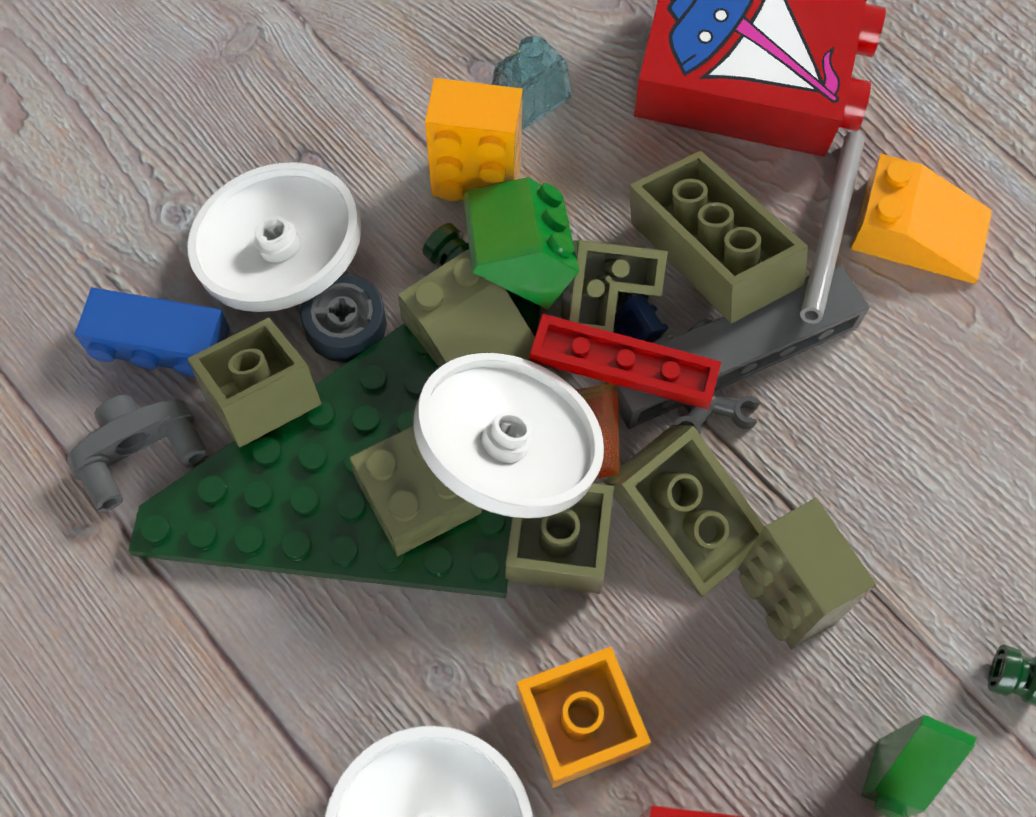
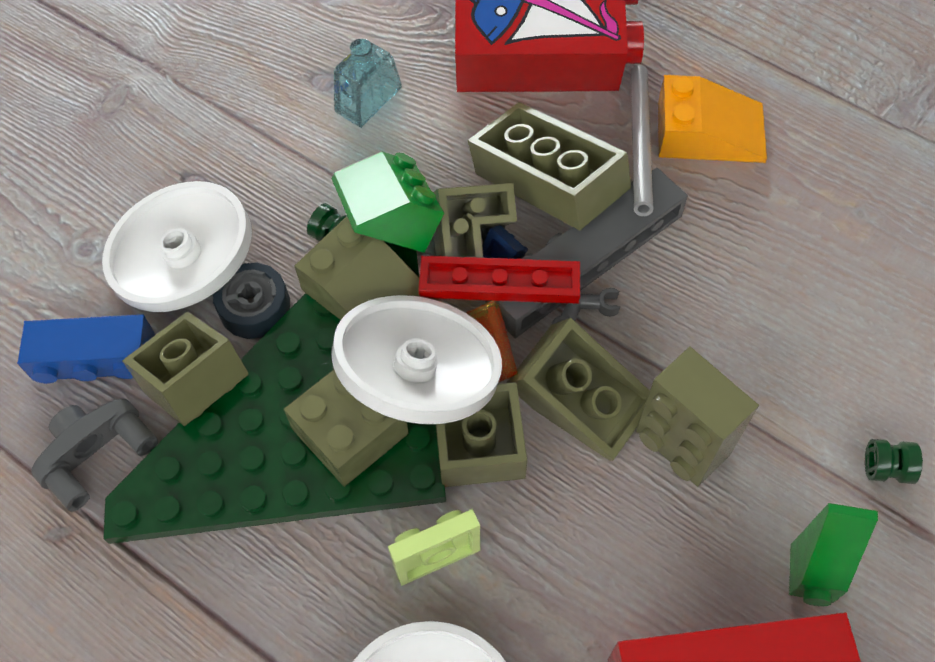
camera: 10 degrees left, 5 degrees down
(465, 652) = (426, 551): none -> yellowish green plate
(472, 136) = (327, 127): light orange brick -> none
(582, 717) = (537, 584): light orange brick -> none

